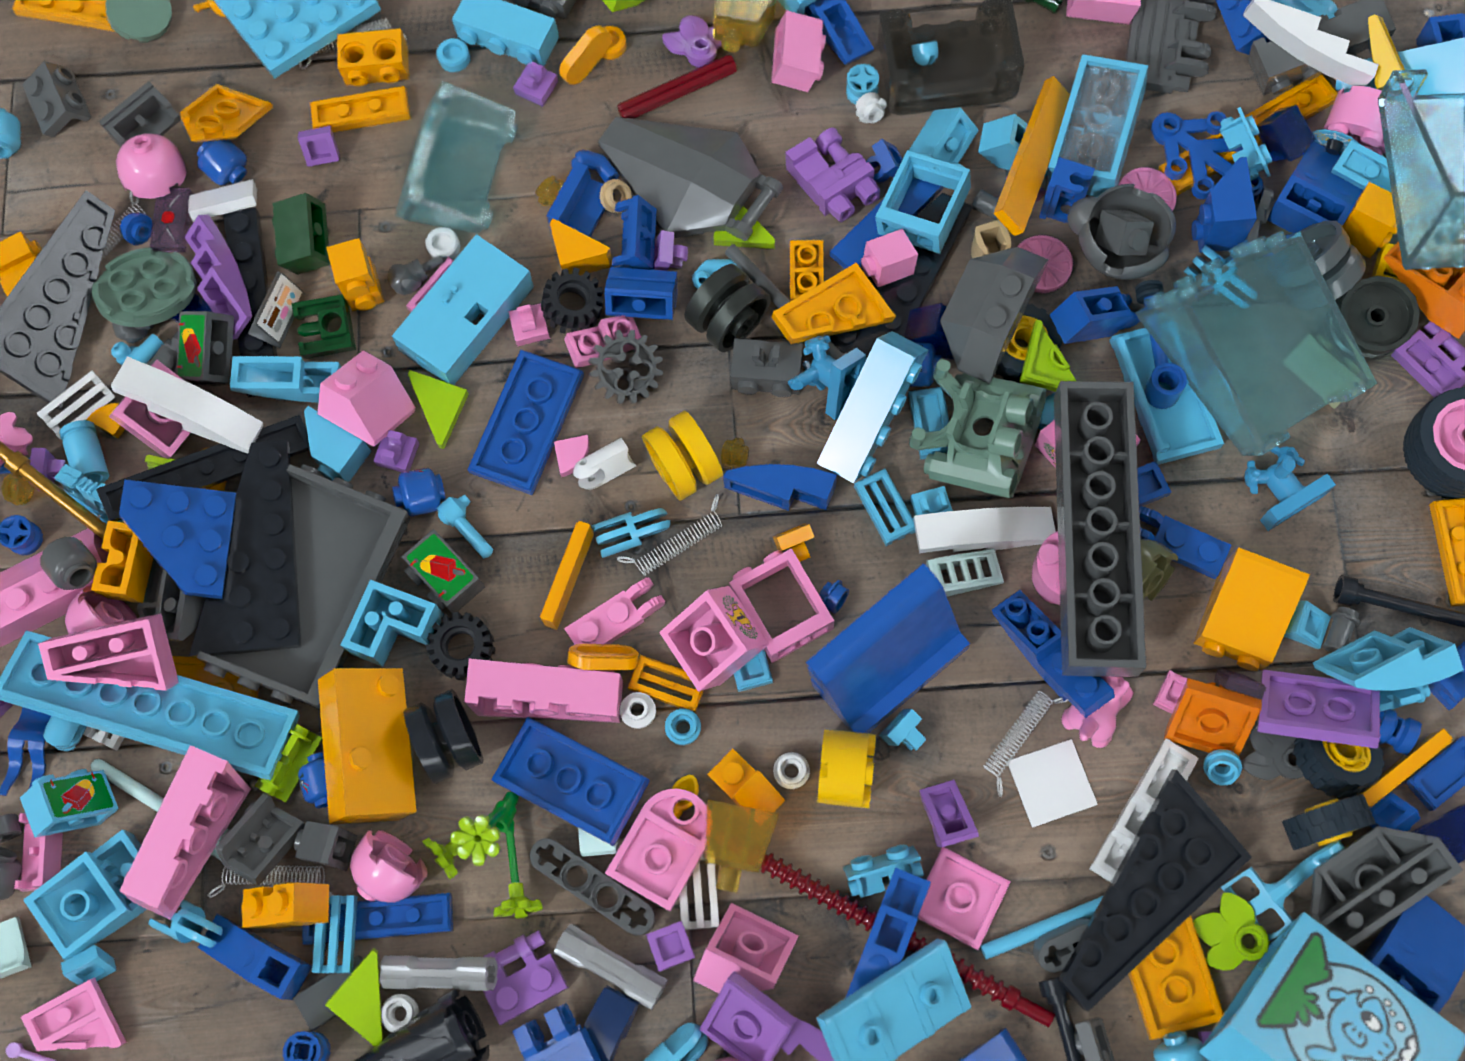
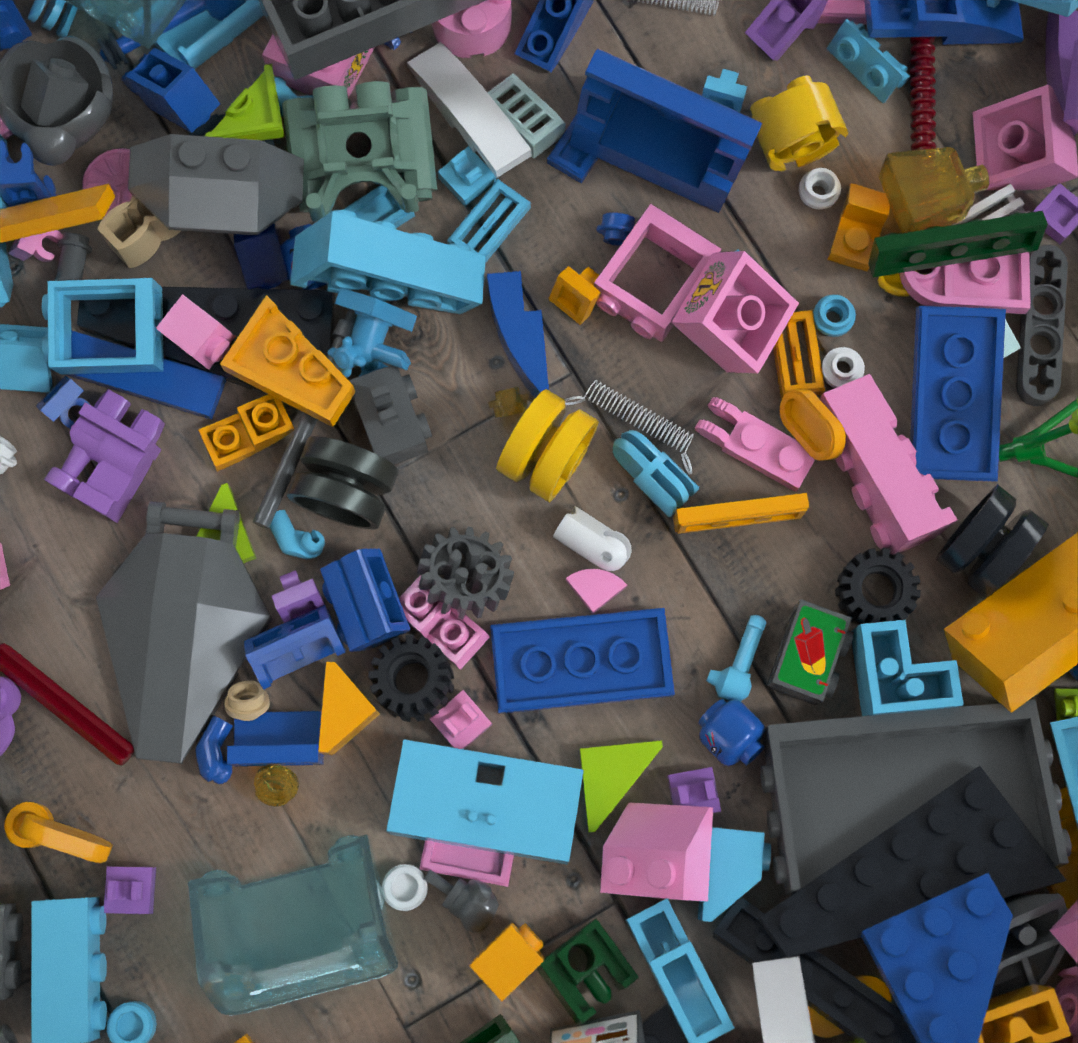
camera: 125 degrees left, 5 degrees up
(677, 851) = (957, 243): none -> dark green plate

